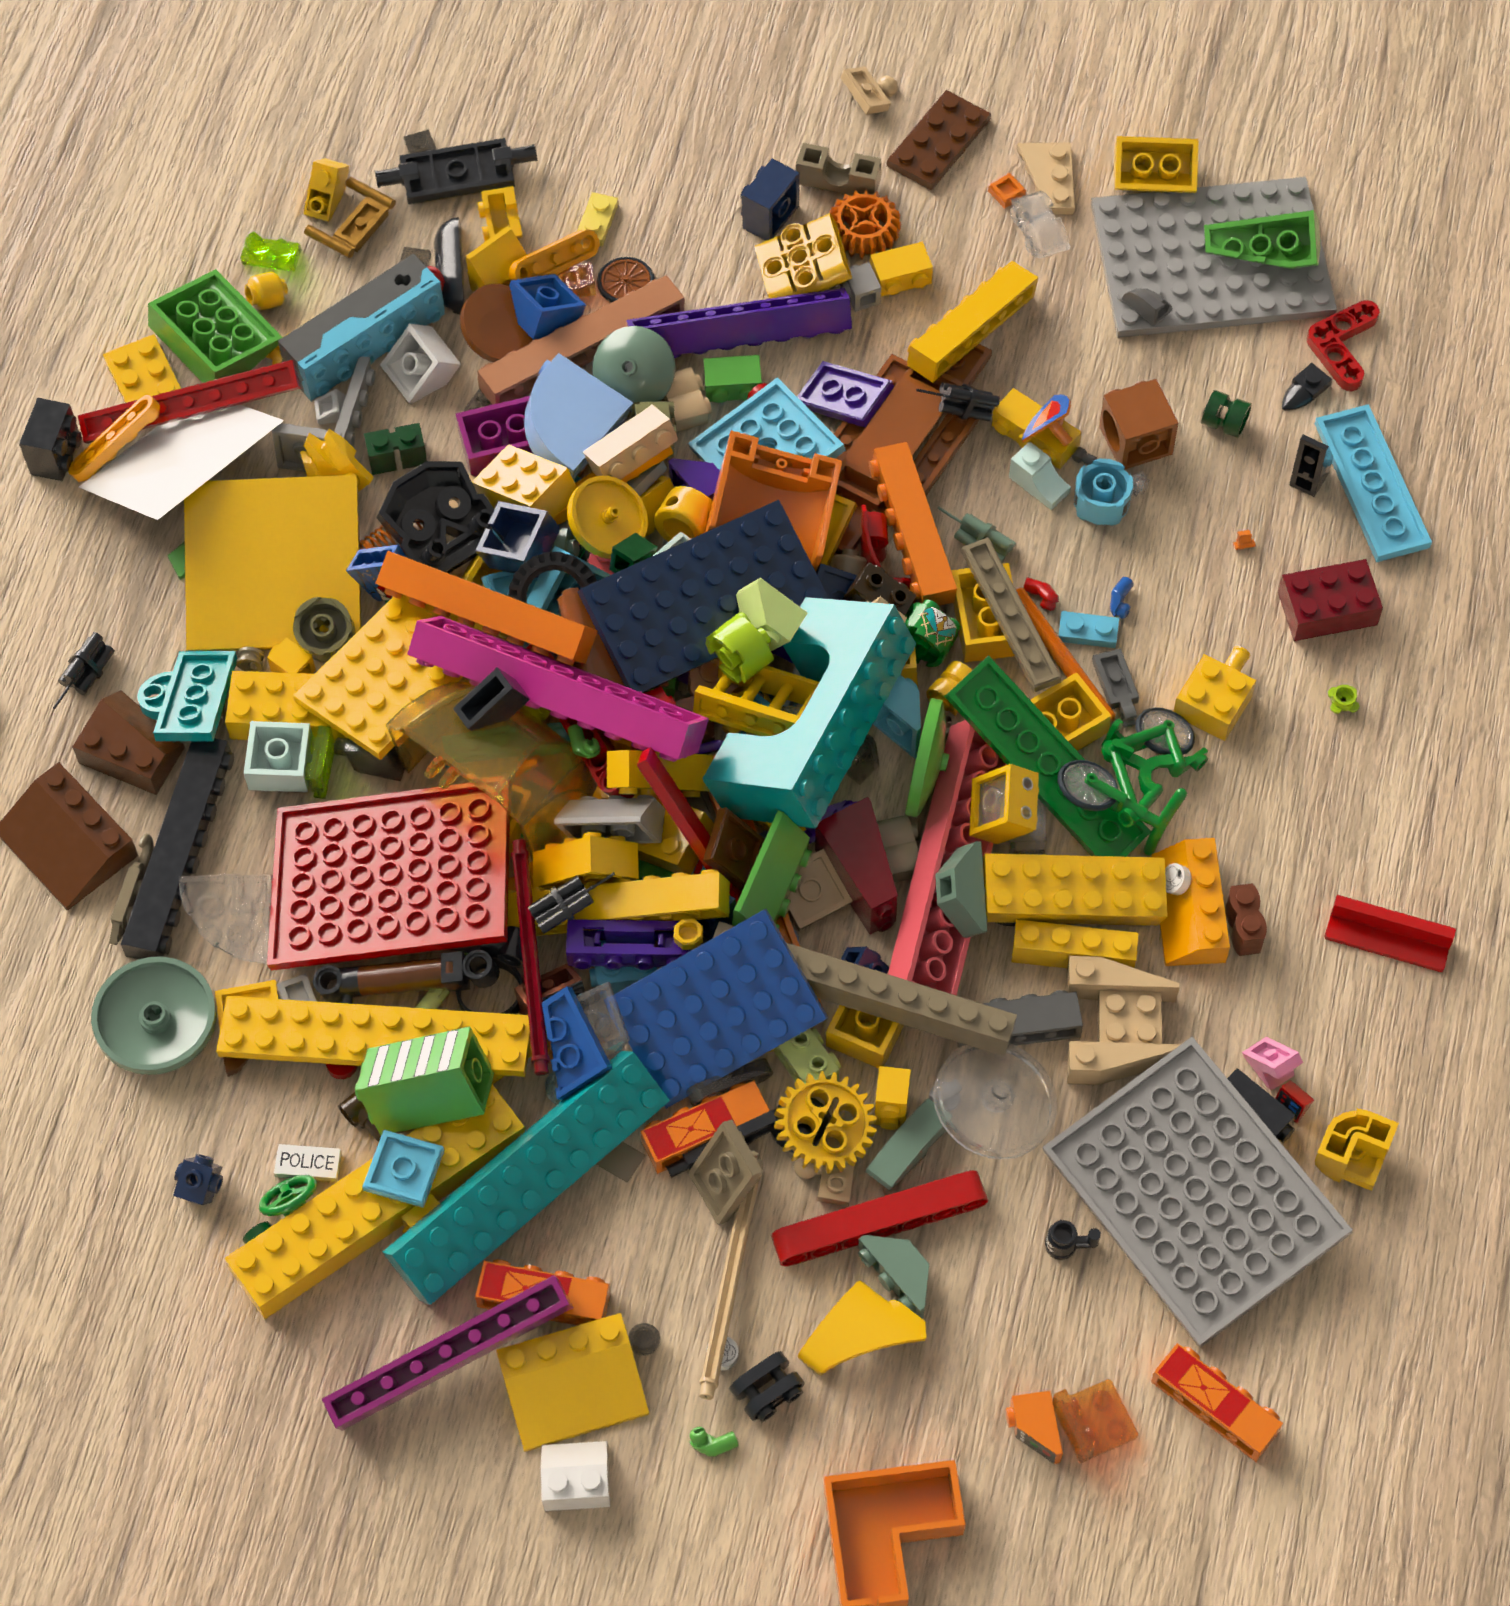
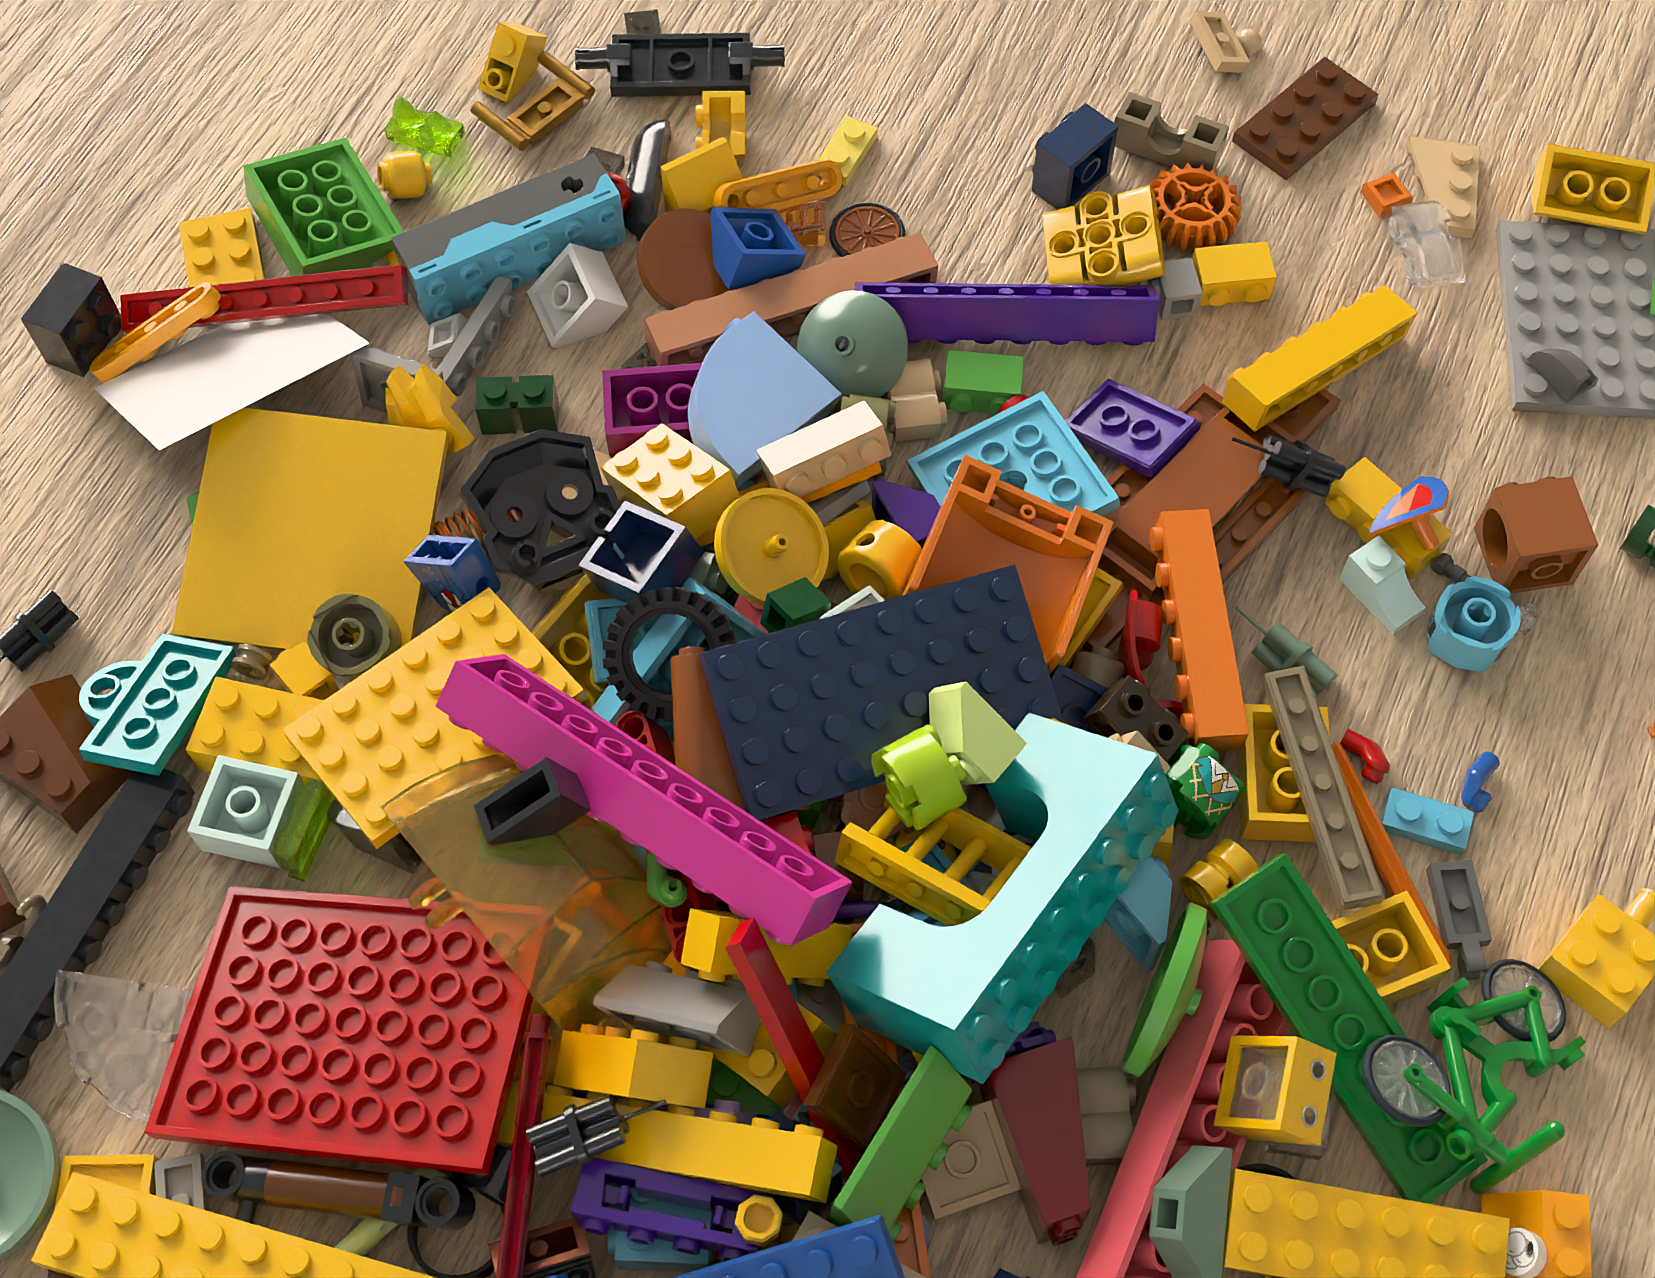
camera: 10 degrees right, 0 degrees up
(486, 607) = (573, 656): orange brick -> none

